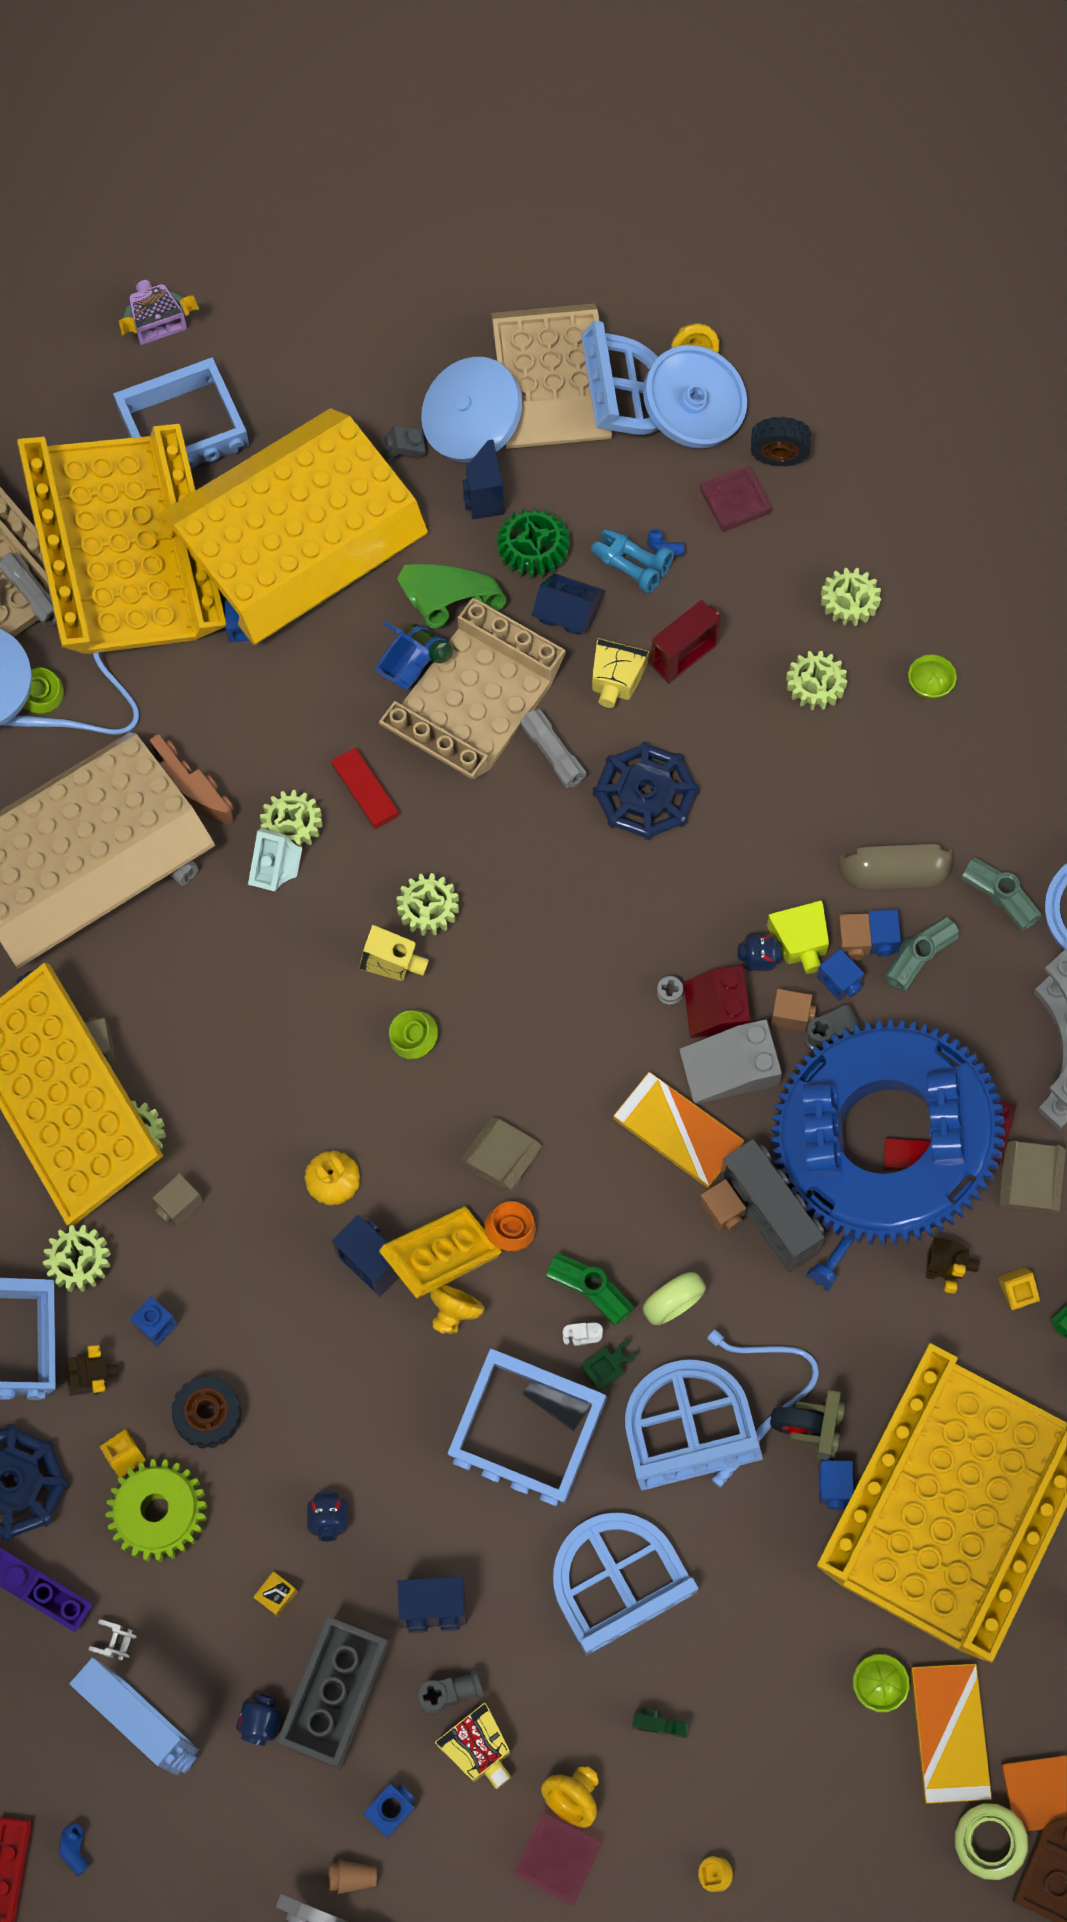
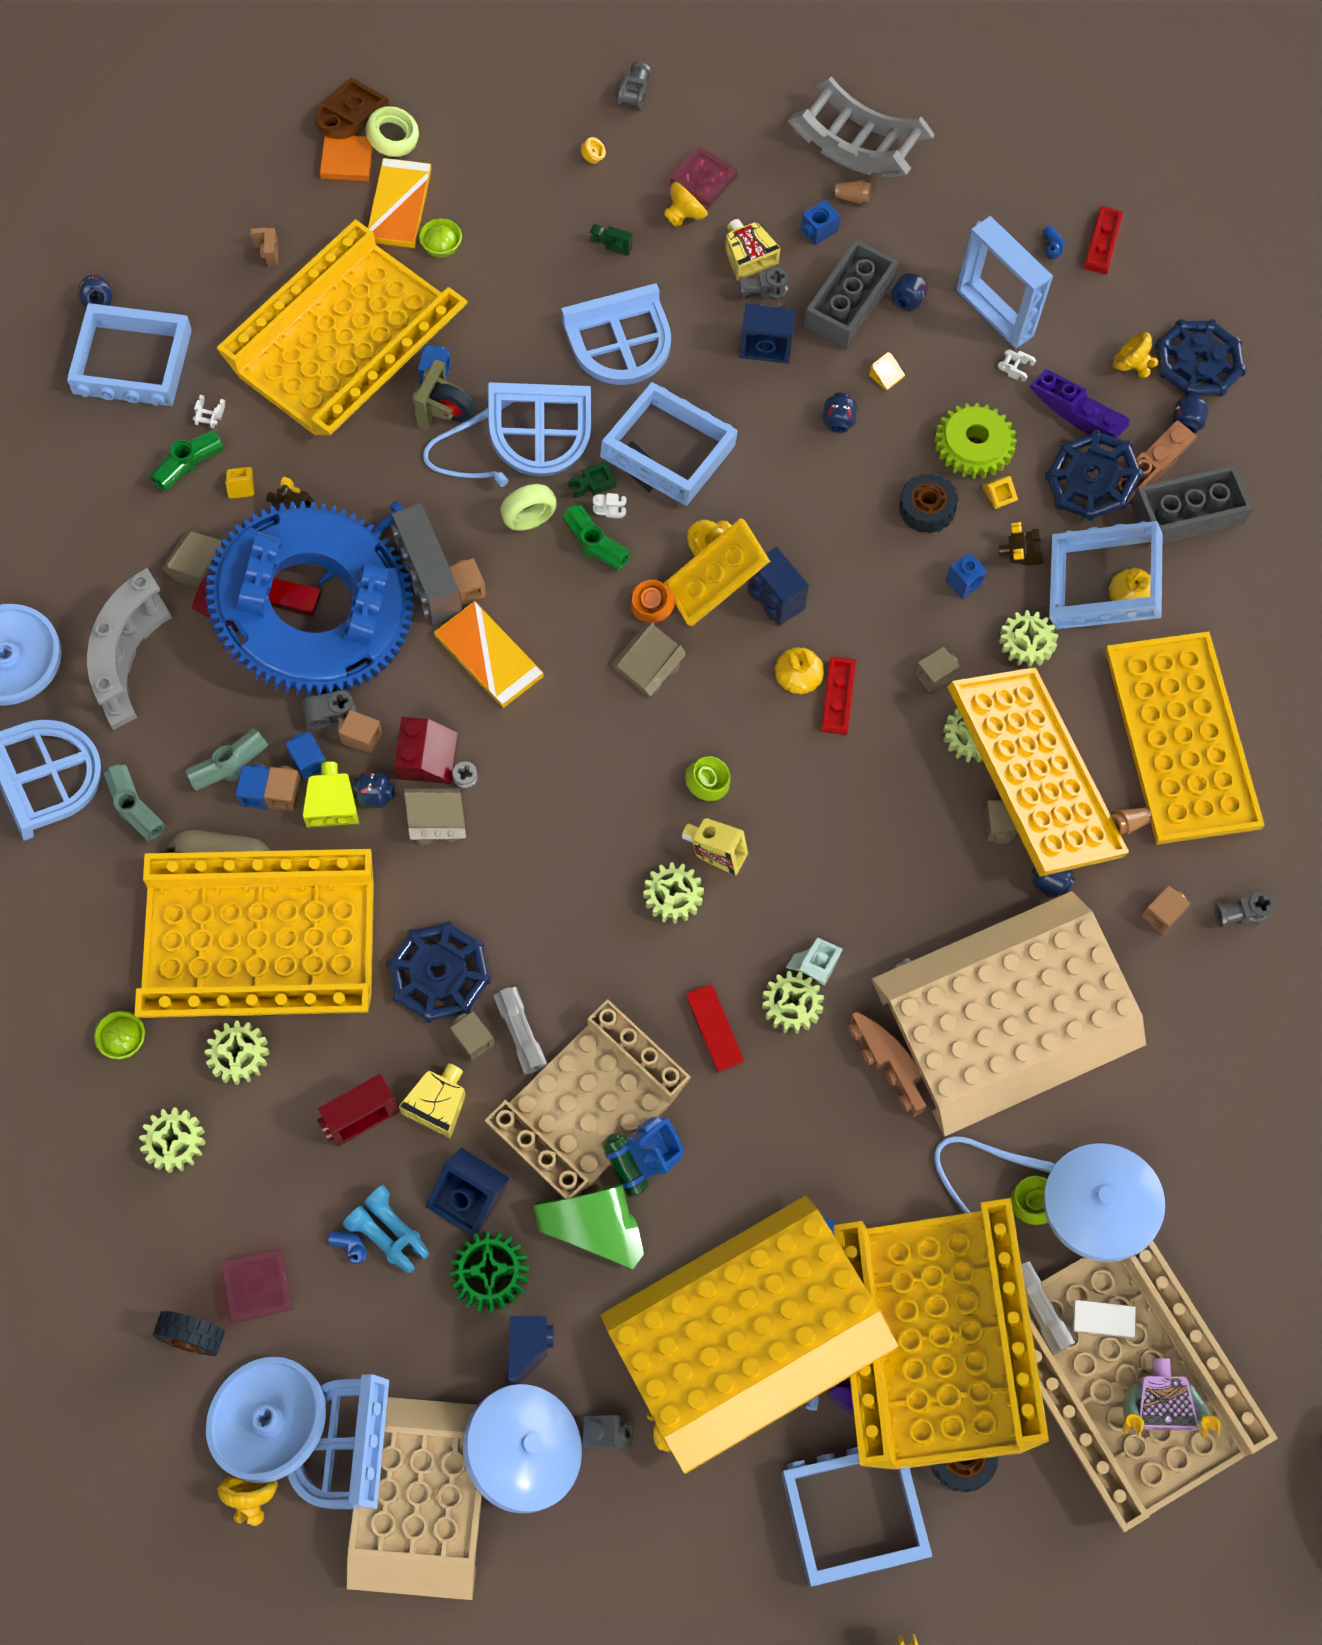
camera: 175 degrees left, 0 degrees up
(285, 1156) = (838, 696): none -> red tile
(597, 733) = (472, 1035): none -> dark tan brick
(690, 941) = (434, 815): none -> dark tan slope
(731, 1063) = (428, 695): light grey slope -> none
(828, 776) = (257, 933): none -> yellow slope

